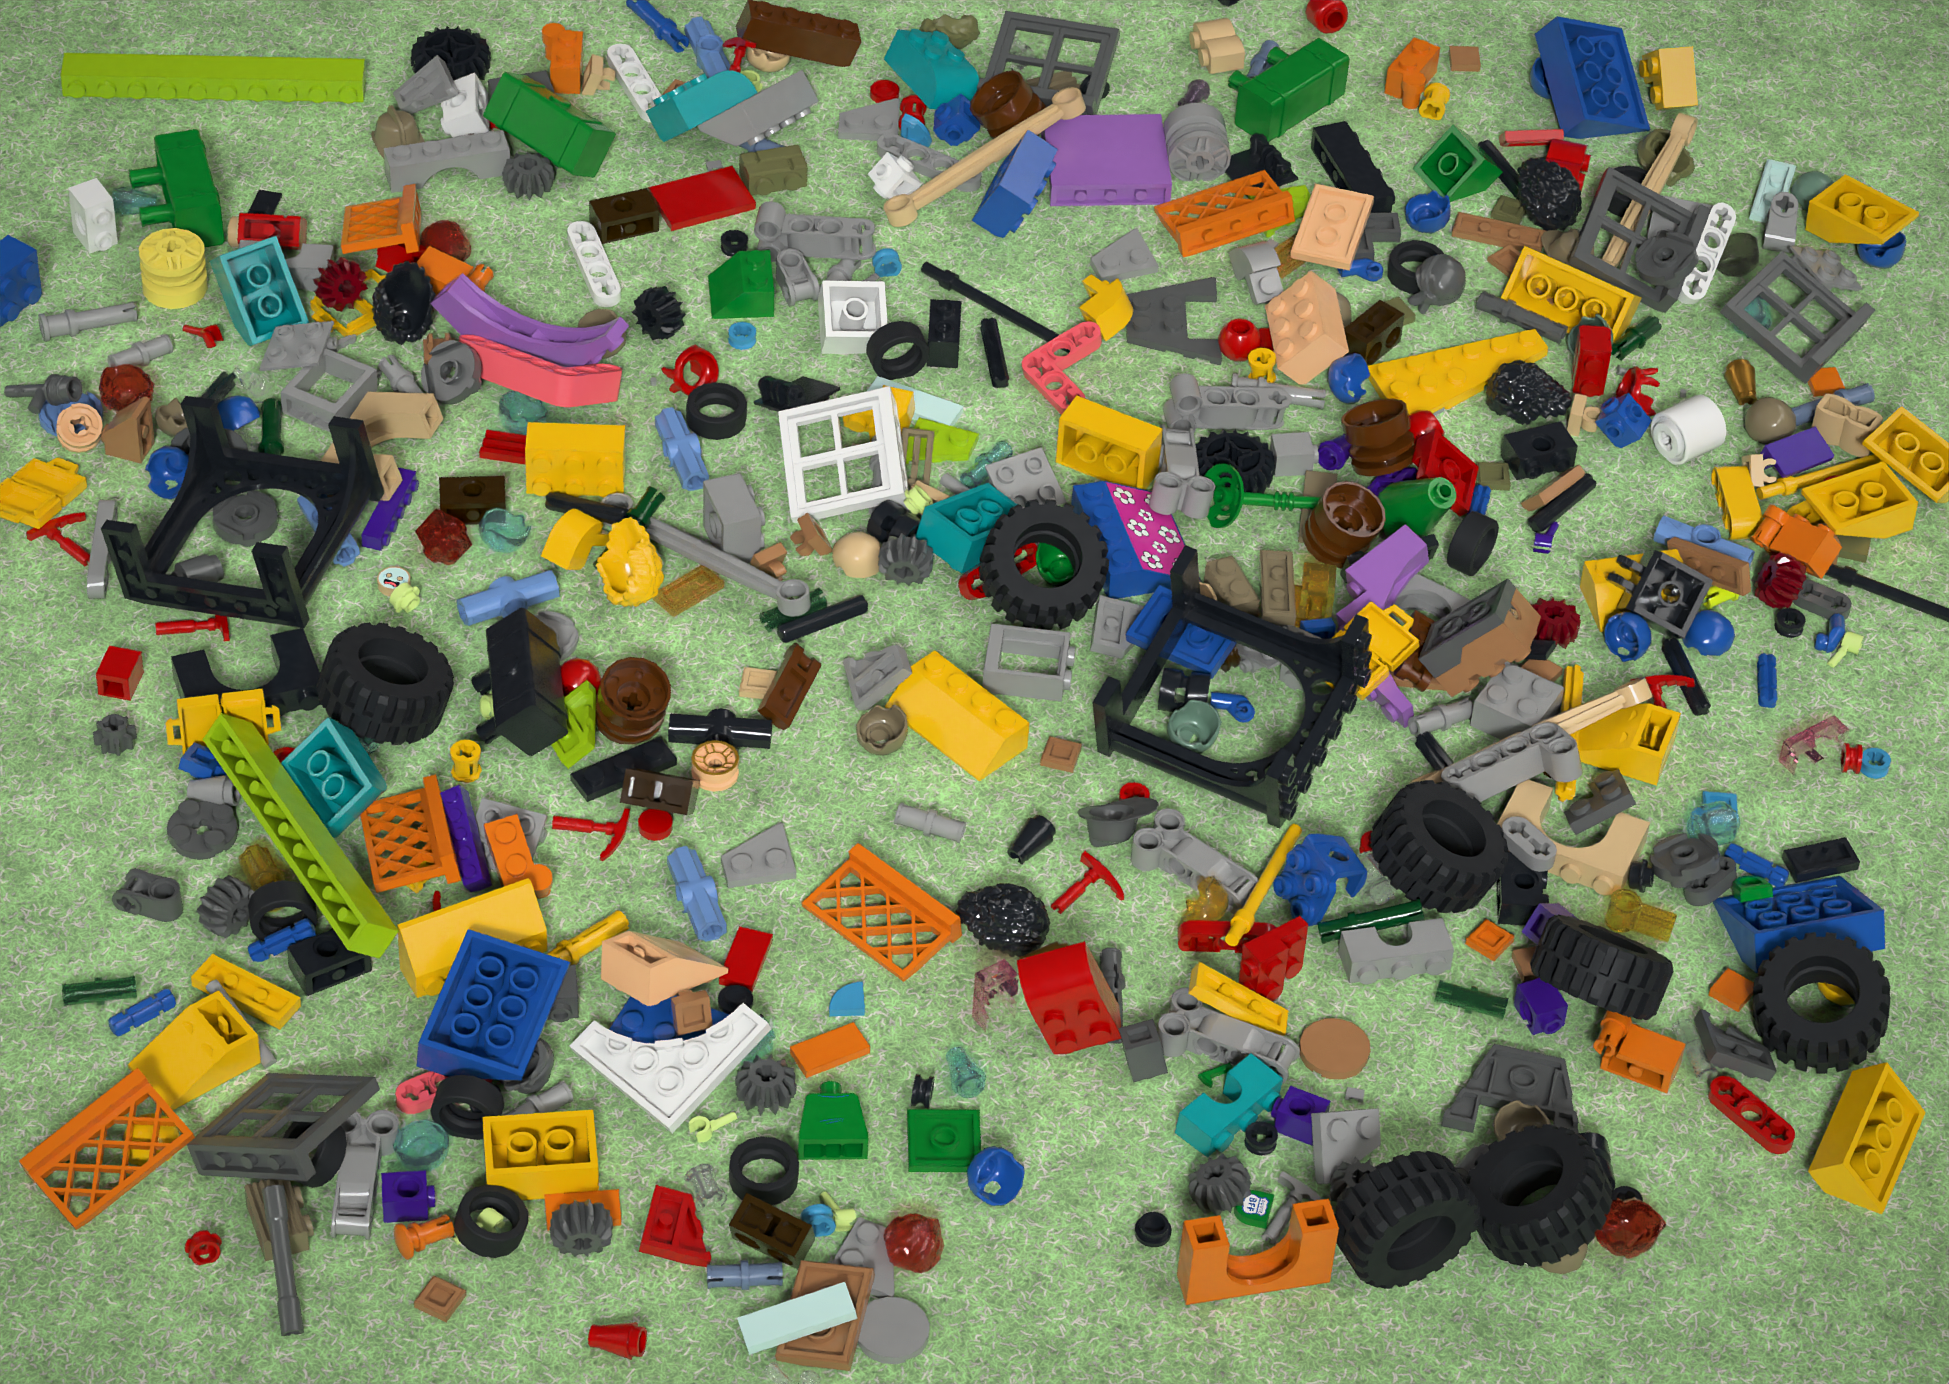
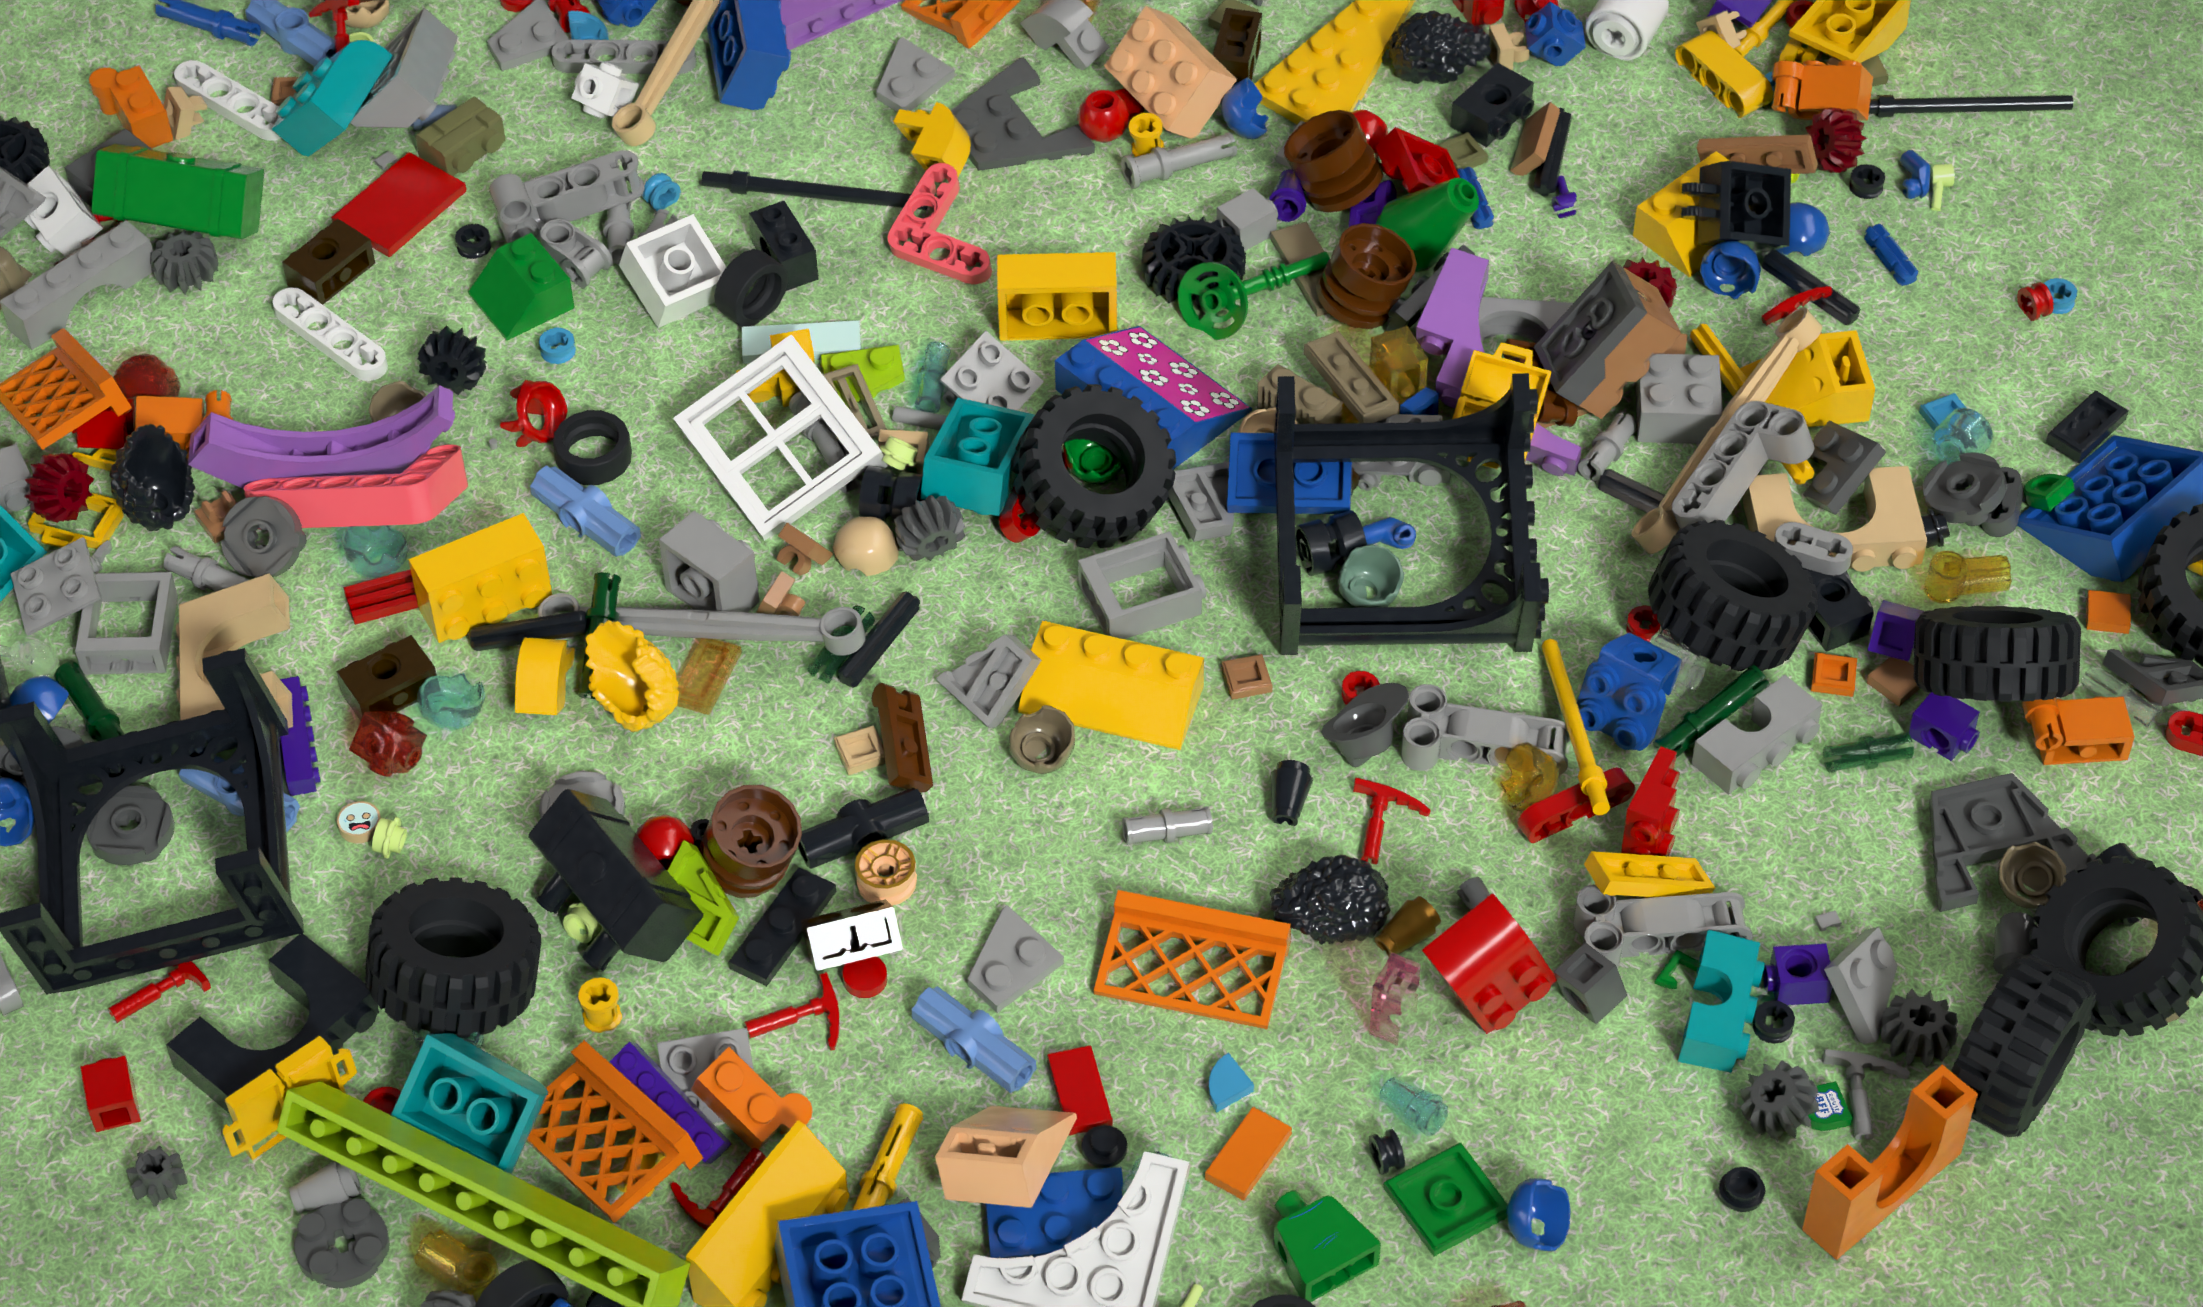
camera: 25 degrees left, 5 degrees up
(200, 567) = (121, 917): dark grey brick -> none
(200, 762) = (289, 1160): blue plate -> none
(507, 596) = (509, 780): medium blue piece -> none
(691, 1011) = (1080, 1188): medium nougat tile -> none
(765, 1084) = (1213, 1233): dark grey gear -> none
(784, 395) = (667, 389): black hinge -> none
(994, 353) = (848, 244): black axle -> none
(1178, 479) = (1155, 299): light grey piece -> none
(1223, 406) = (1139, 200): light grey piece -> none
(1334, 1048) = (1772, 877): medium nougat tile -> none
(1472, 543) = (1507, 237): black tyre -> none
(1702, 535) = (1726, 124): medium blue piece -> none
(1757, 865) = (2033, 461): blue axle -> none
(1809, 738) = (1987, 308): piece -> none
(1822, 600) = (1881, 144): dark grey beam -> none

